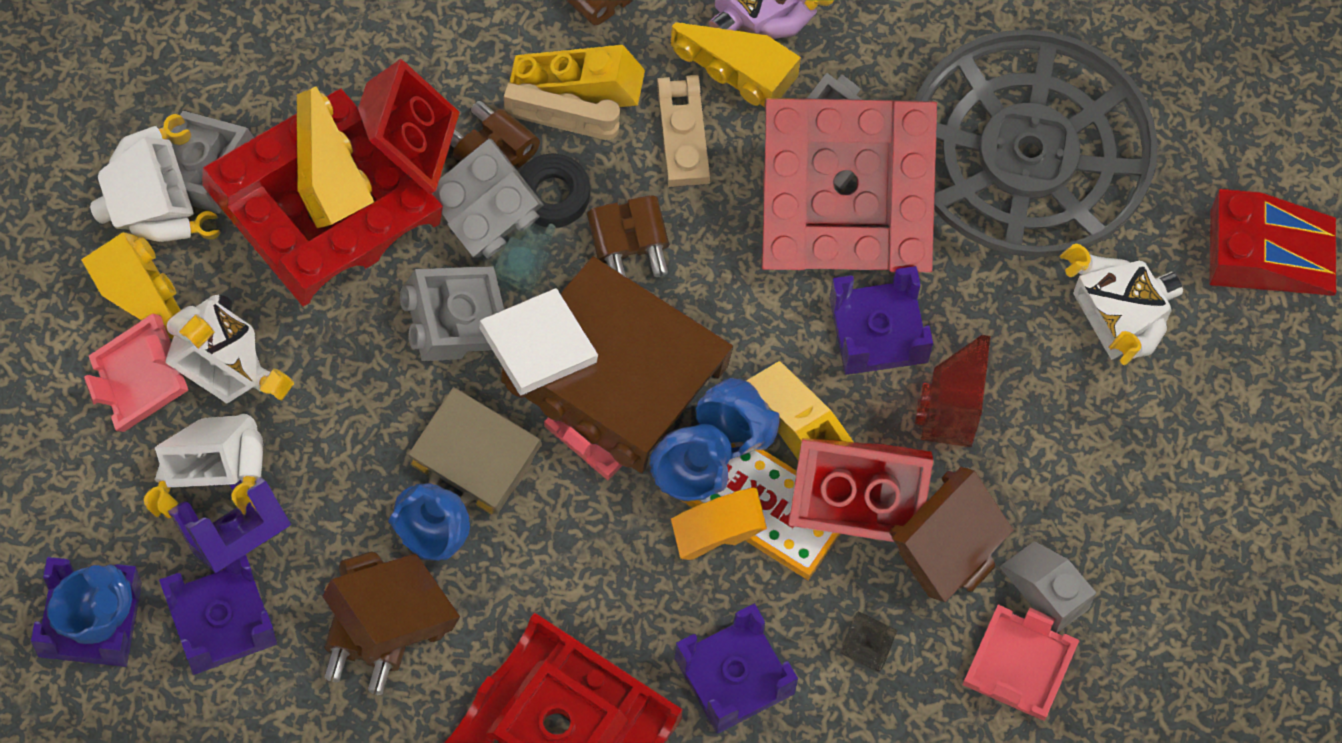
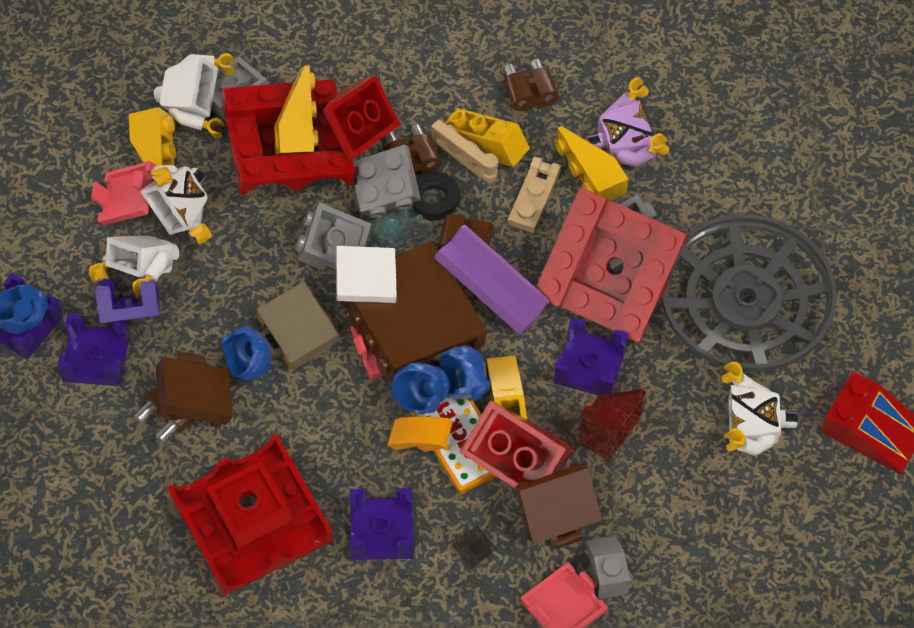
camera: 30 degrees right, 5 degrees down
(700, 272) = (492, 279): none -> medium lavender panel

